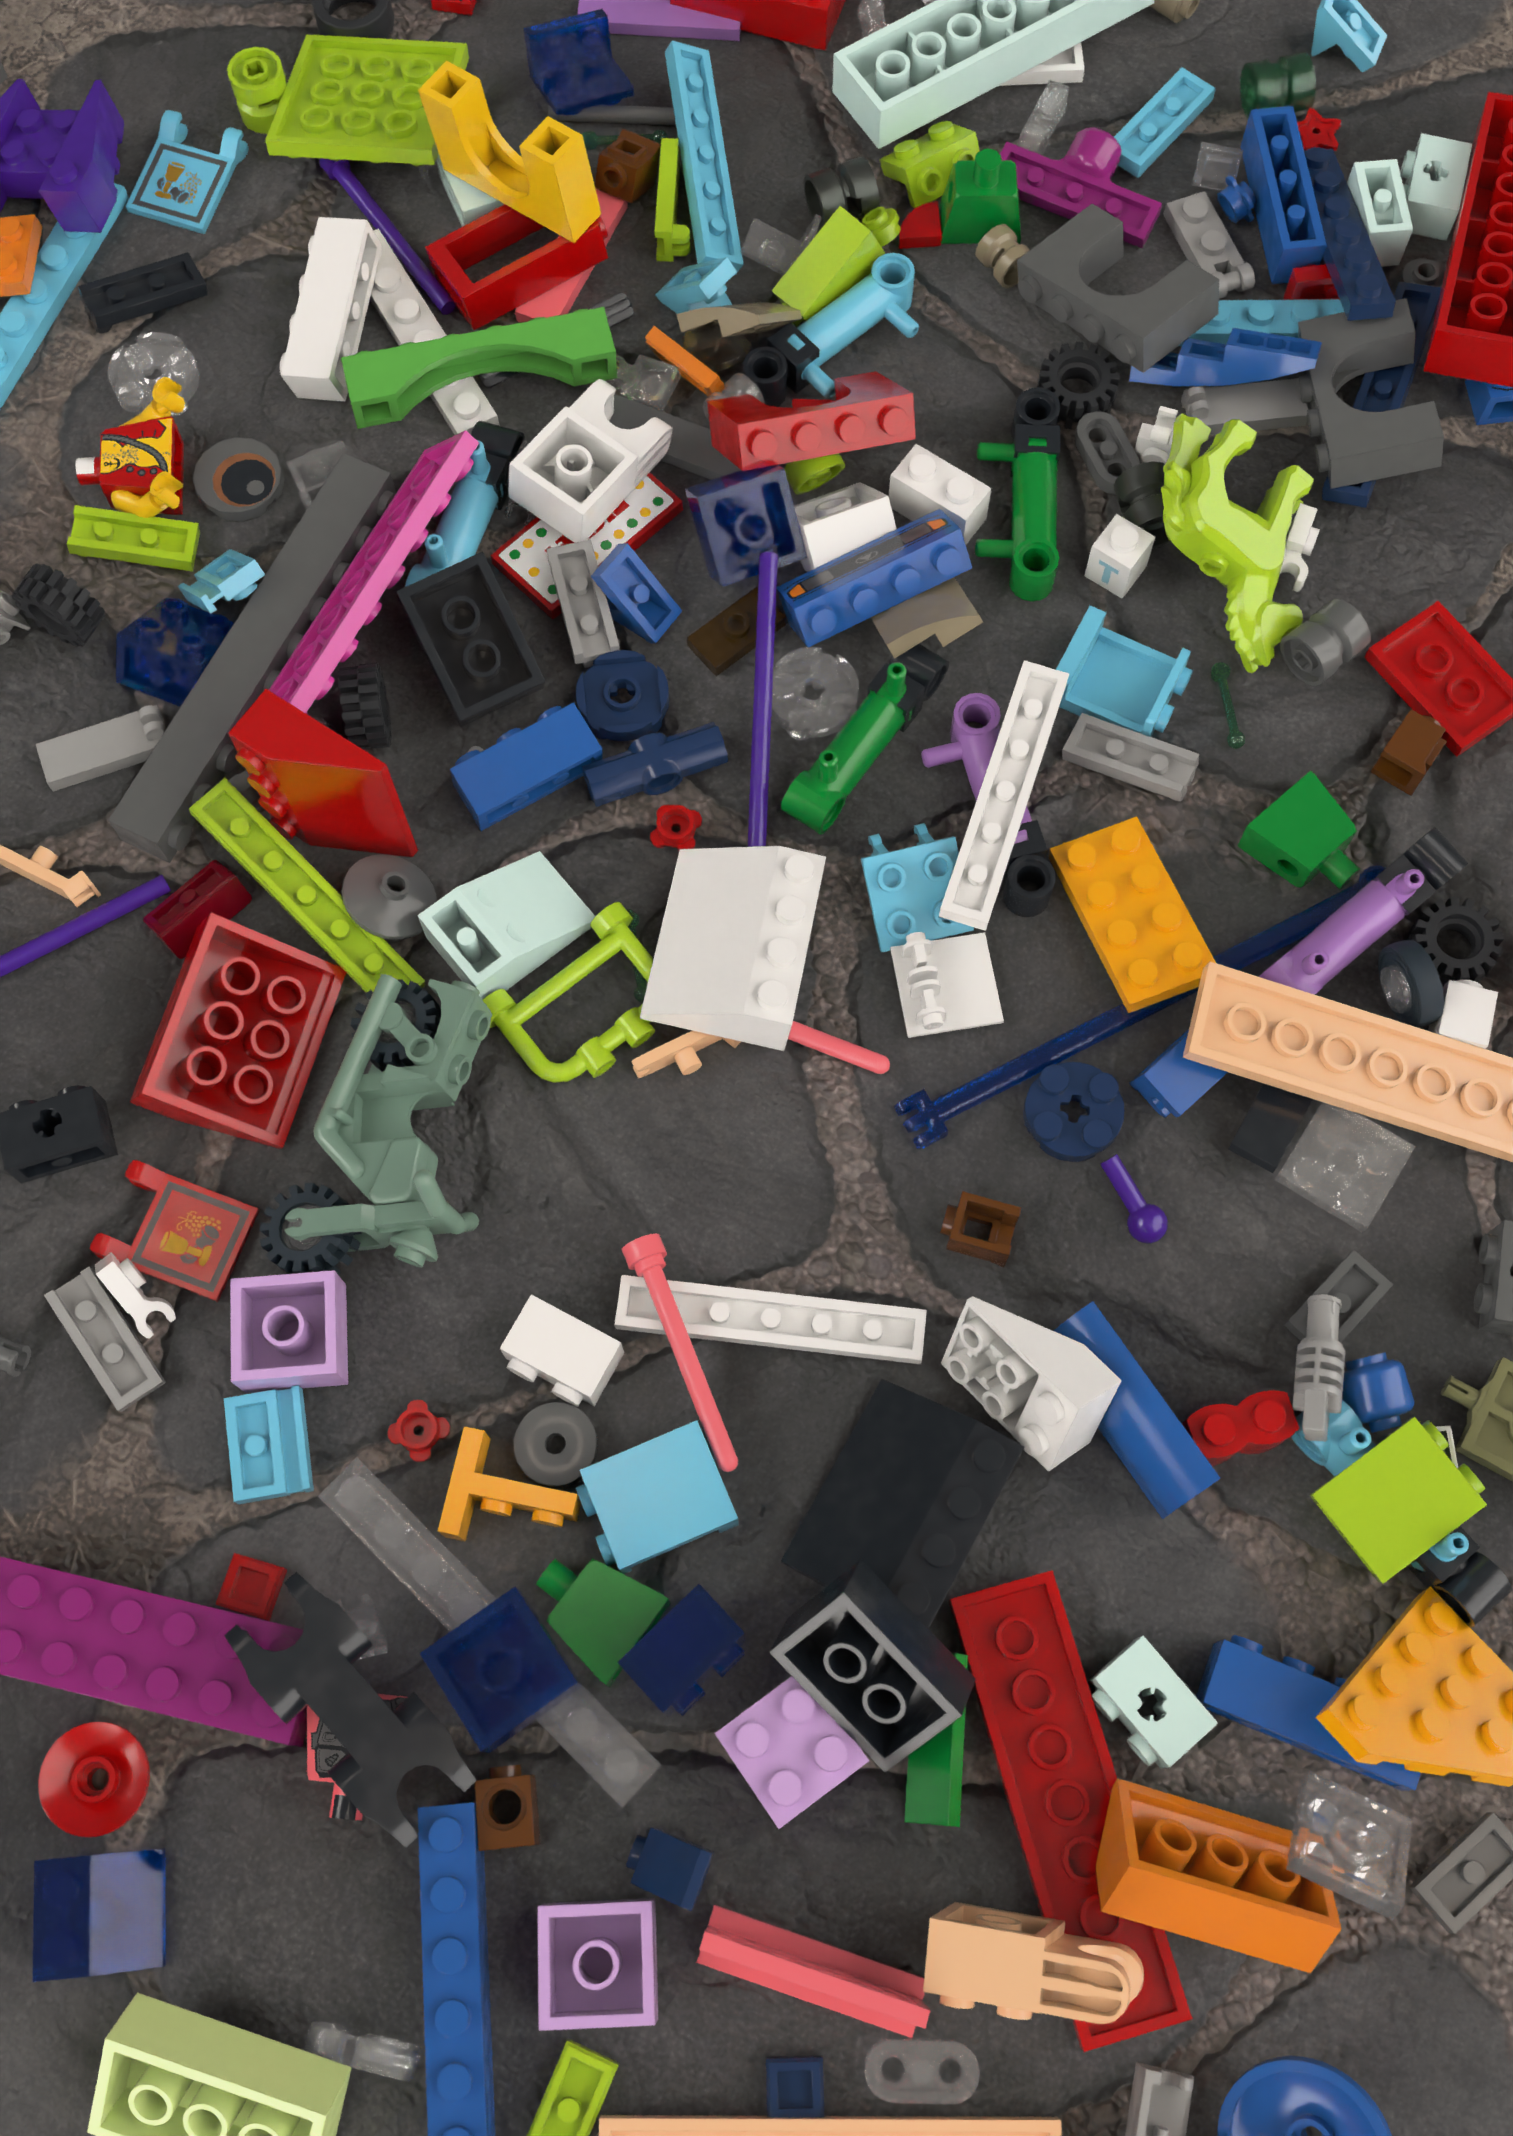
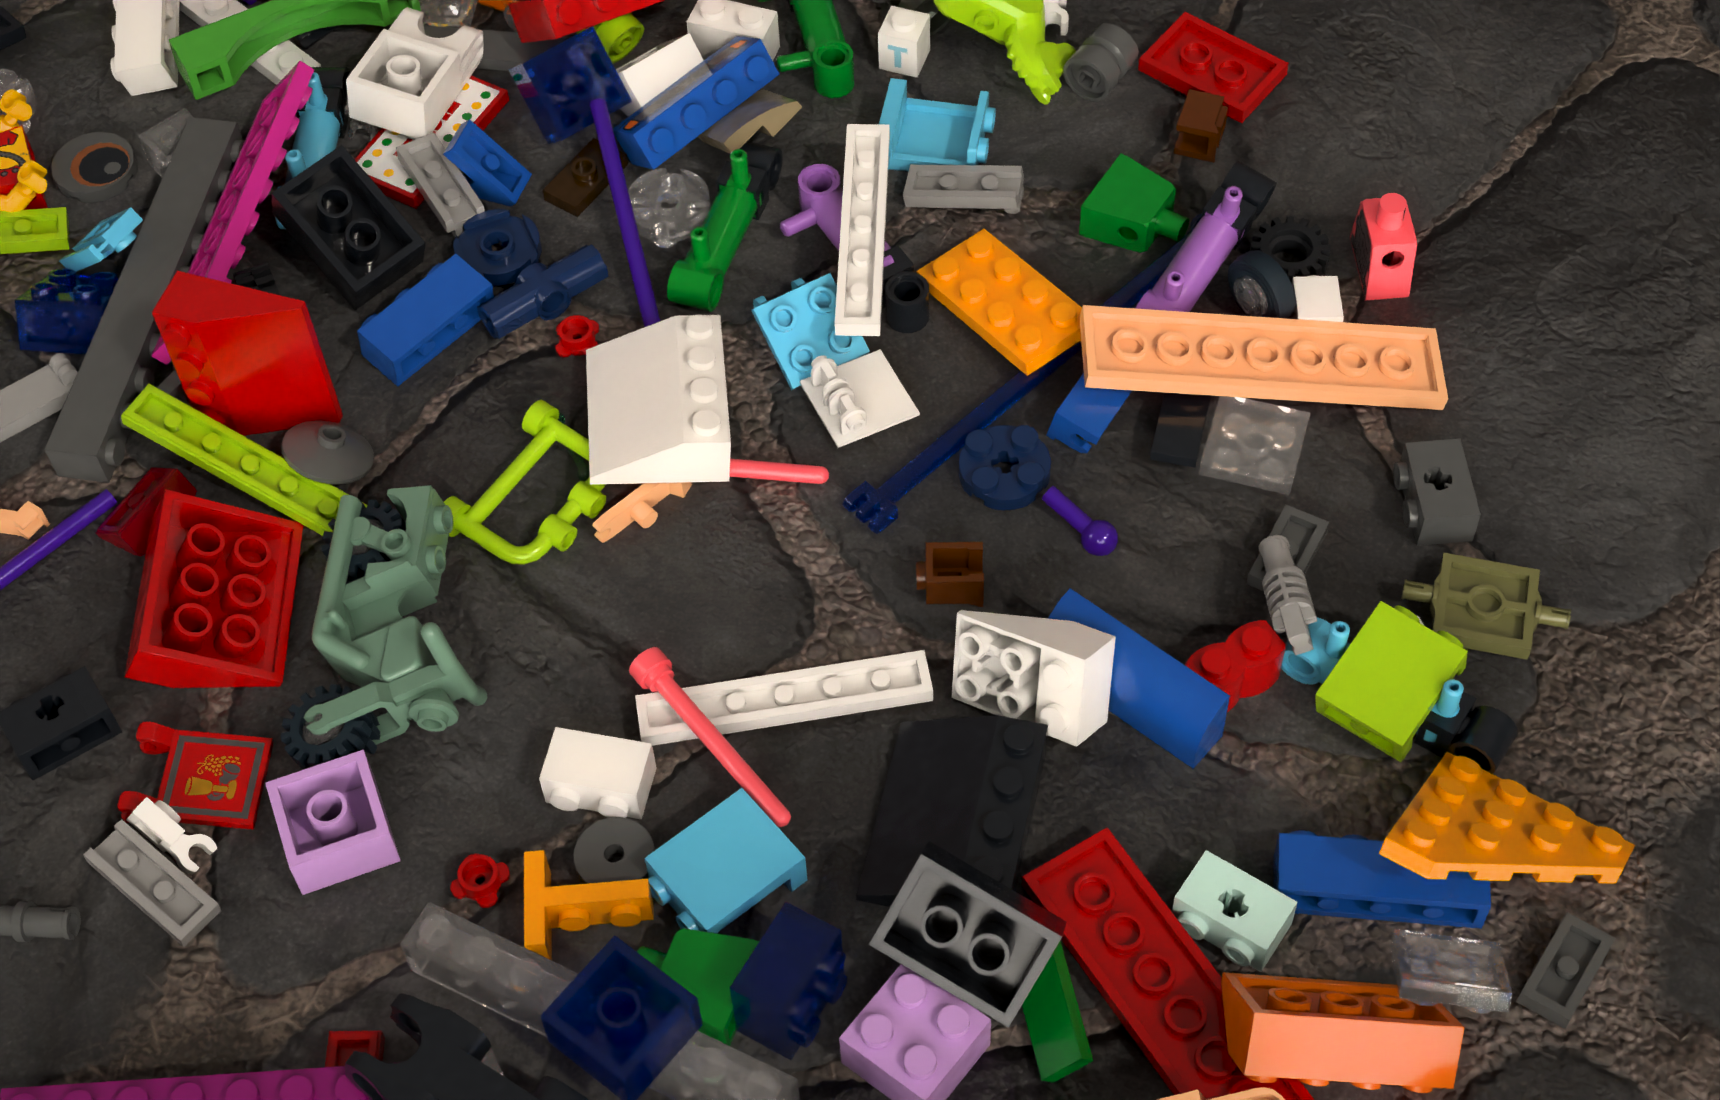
camera: 15 degrees left, 15 degrees down
(268, 1444) = (337, 929): medium azure plate -> none
(505, 923) = (441, 443): light aqua slope -> none
(1220, 674) = (1020, 111): clear green hinge -> none
(1377, 1391) = (1343, 599): blue head -> none

